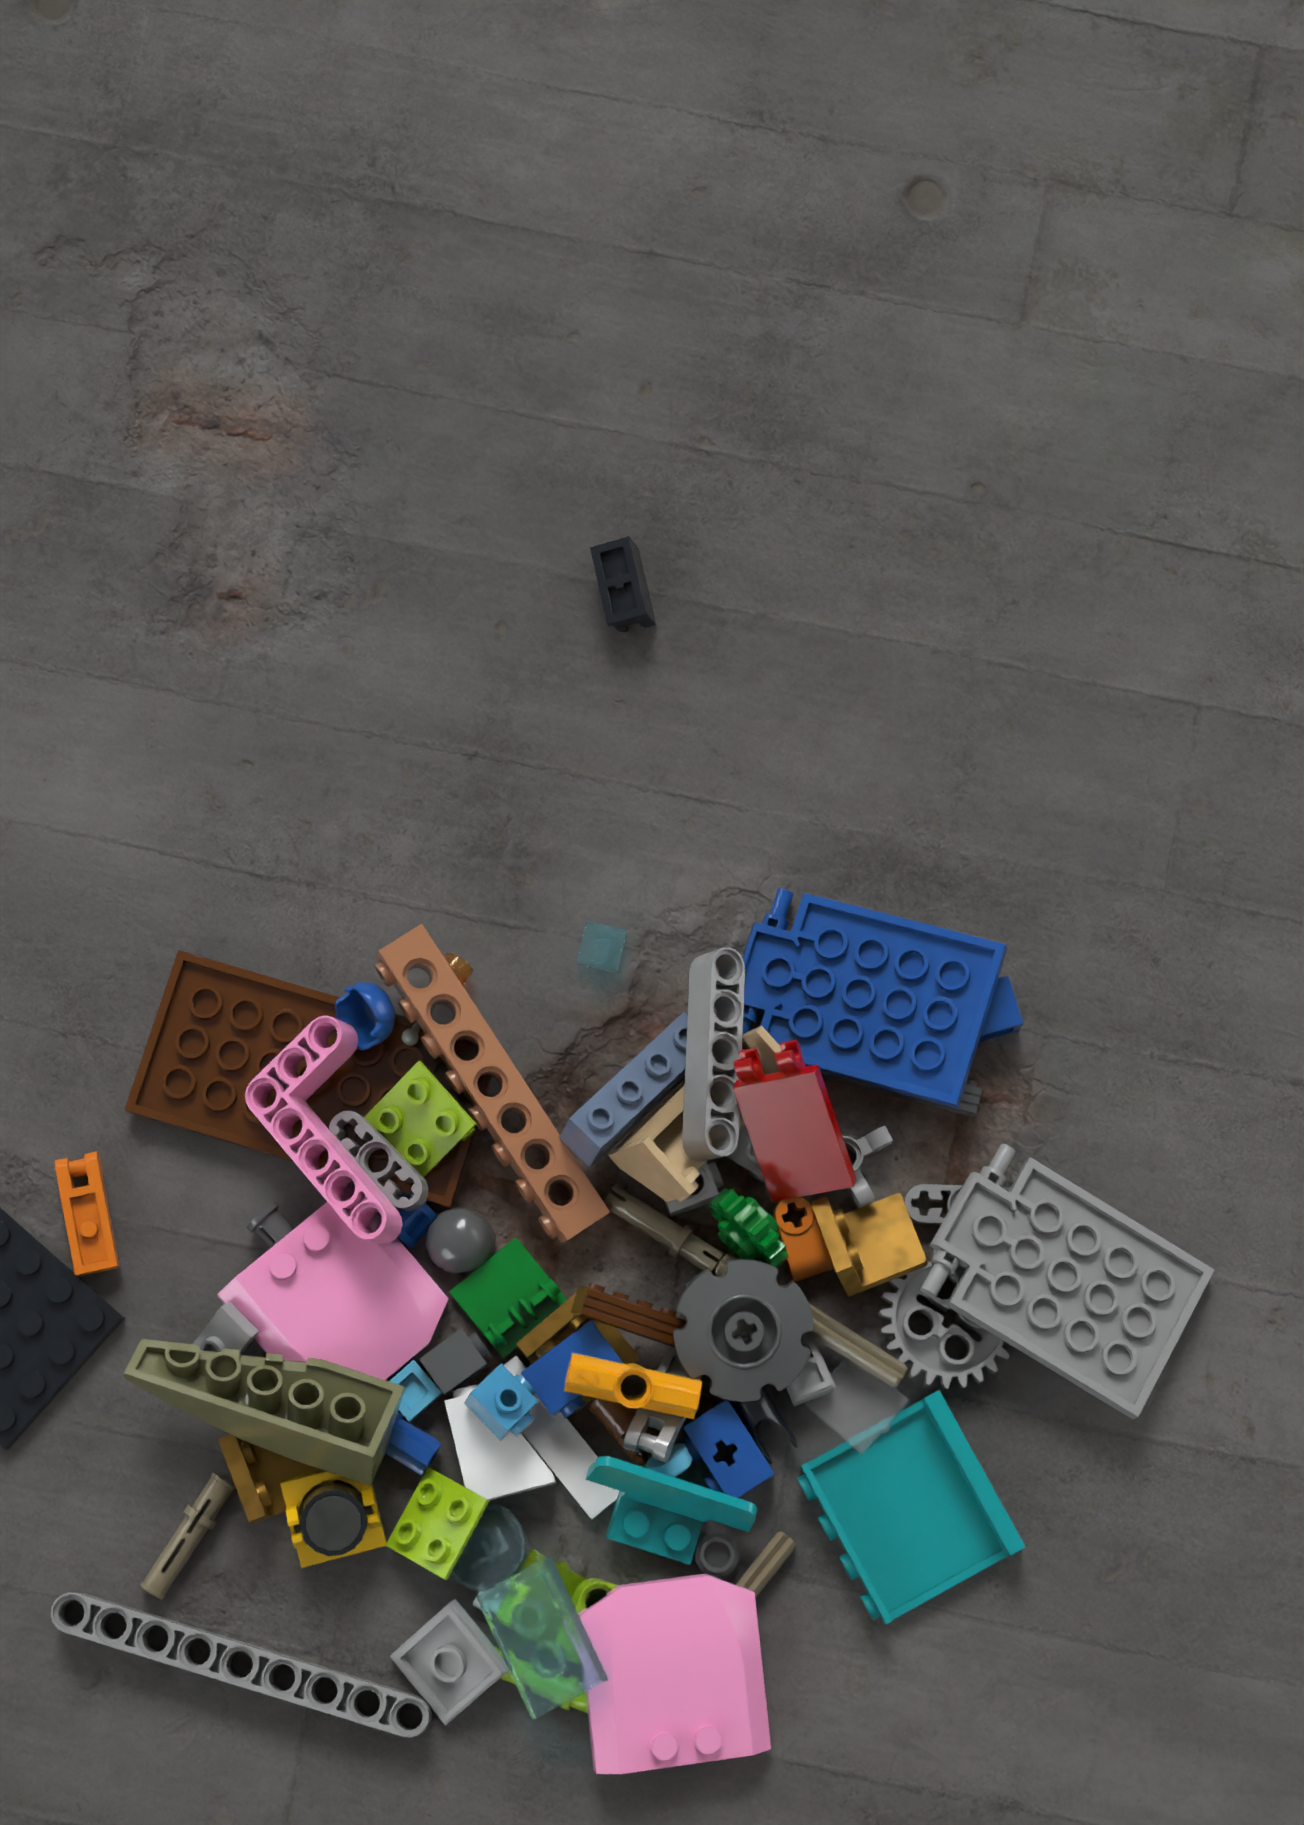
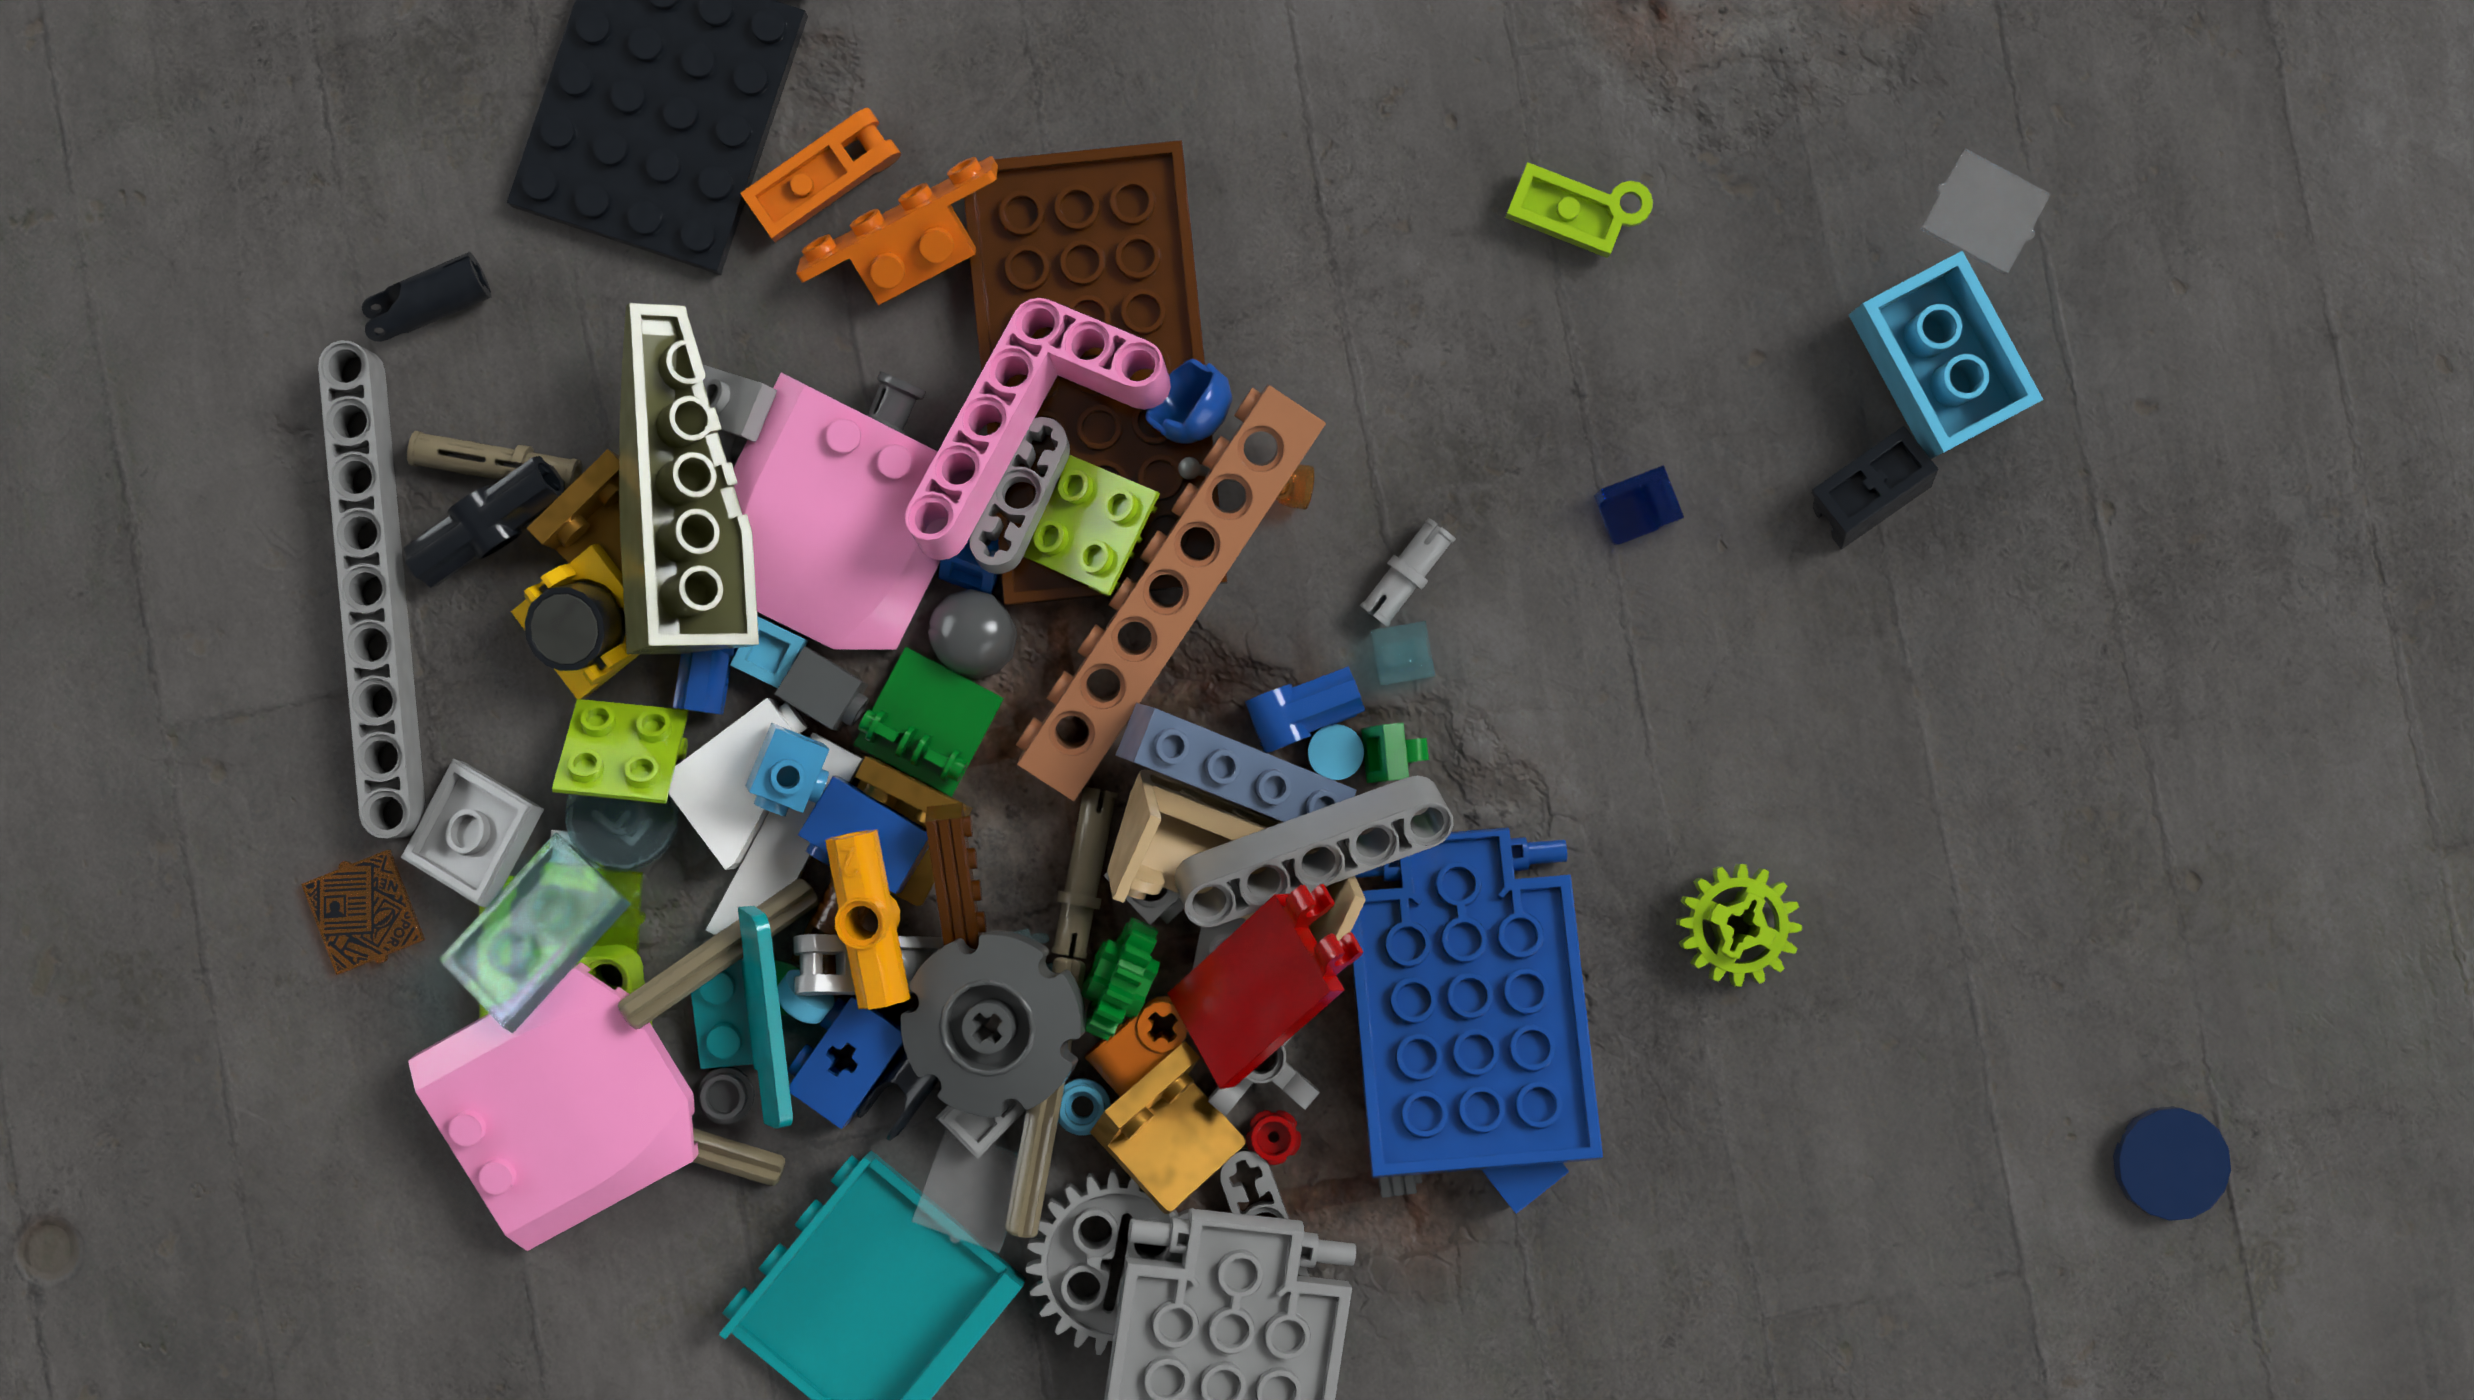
camera: 65 degrees right, 10 degrees up
(46, 1537) = (426, 297): none -> black piece
(162, 1168) = (907, 241): none -> orange bracket
(229, 1557) = (484, 522): none -> black piece
(346, 704) = (1575, 210): none -> lime hinge
(467, 438) = (1985, 211): none -> clear piece
(473, 1773) = (363, 912): none -> clear orange piece
(547, 919) = (1407, 572): none -> light grey pin
(554, 502) = (1945, 355): none -> medium azure brick
(568, 744) = (1638, 506): none -> clear blue panel
(611, 1039) = (1293, 712): none -> blue piece
(614, 1518) = (712, 957): none -> dark tan axle
(650, 1019) = (1335, 752): none -> medium azure tile
(667, 982) = (1389, 753): none -> green tile
(832, 1286) = (1082, 1087): none -> medium azure plate
(897, 807) = (1752, 902): none -> lime gear
(901, 1162) = (1280, 1122): none -> red plate
(1163, 577) = (2172, 1163): none -> dark blue tile

